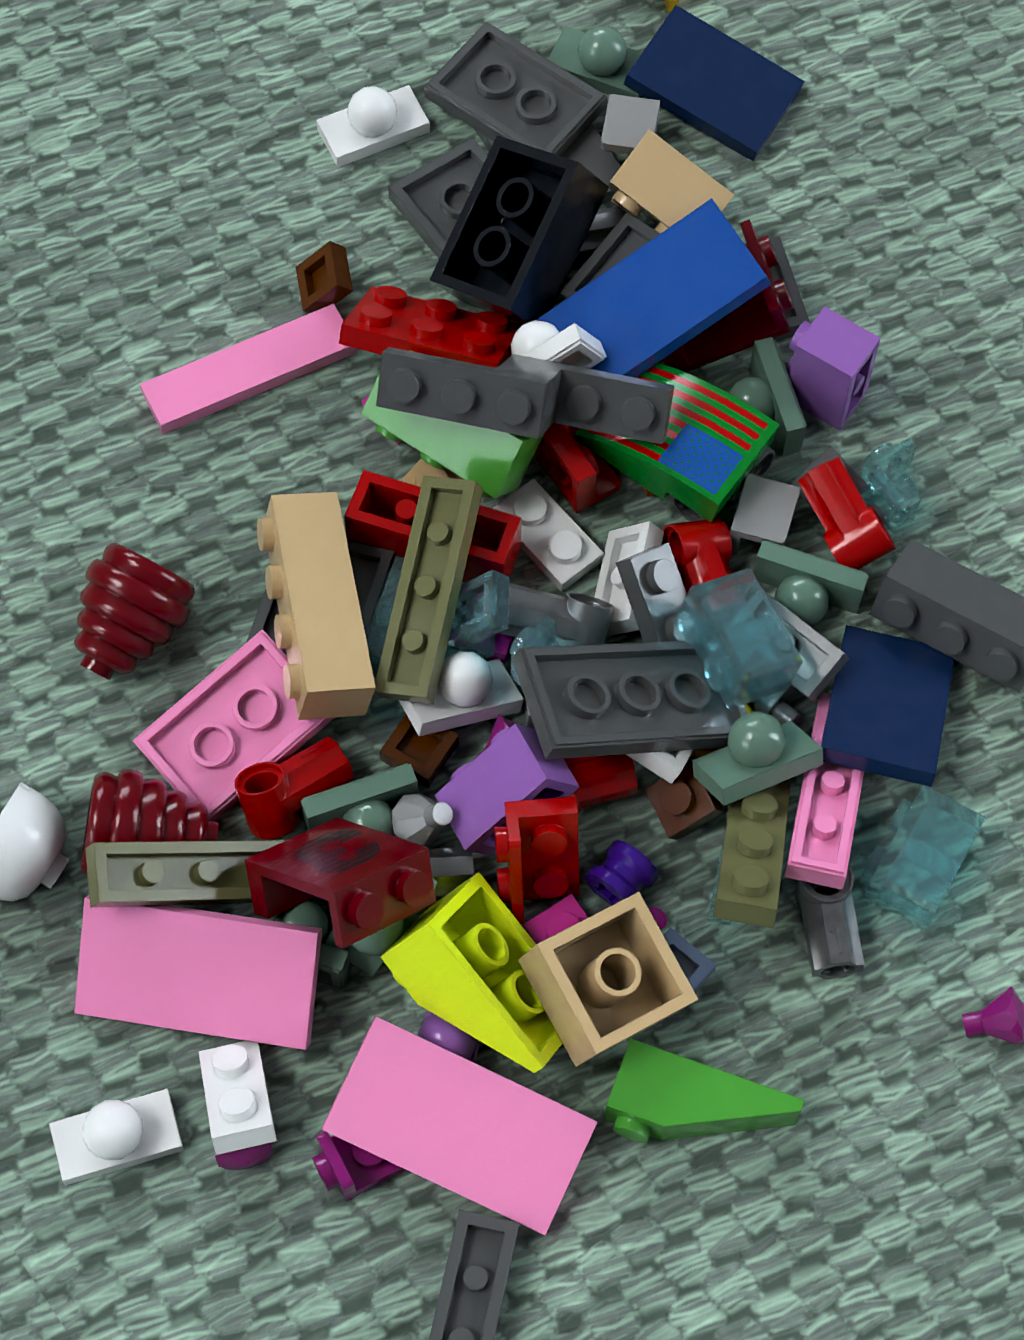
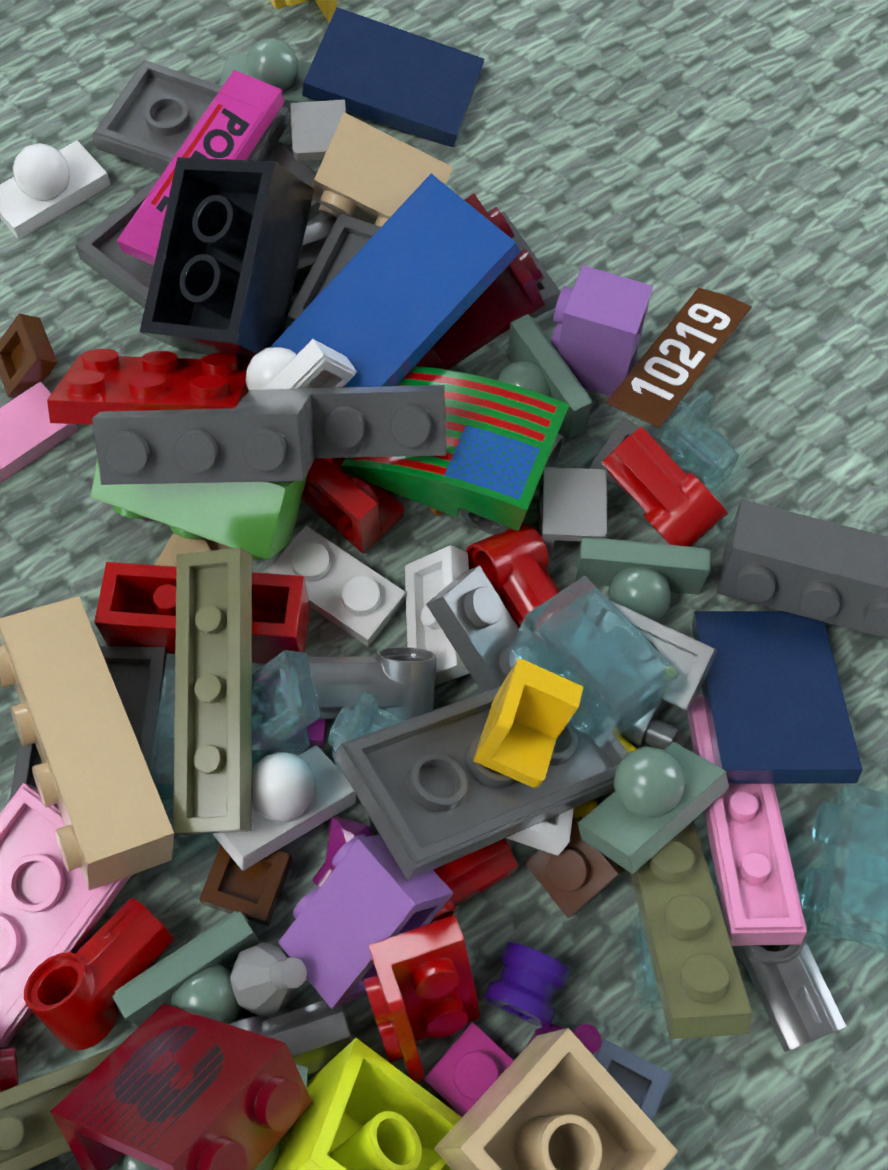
camera: 15 degrees left, 0 degrees up
(533, 121) = (224, 131): none -> dark pink tile
(670, 669) = (526, 722): none -> yellow panel
(900, 402) = (678, 356): none -> reddish brown sticker

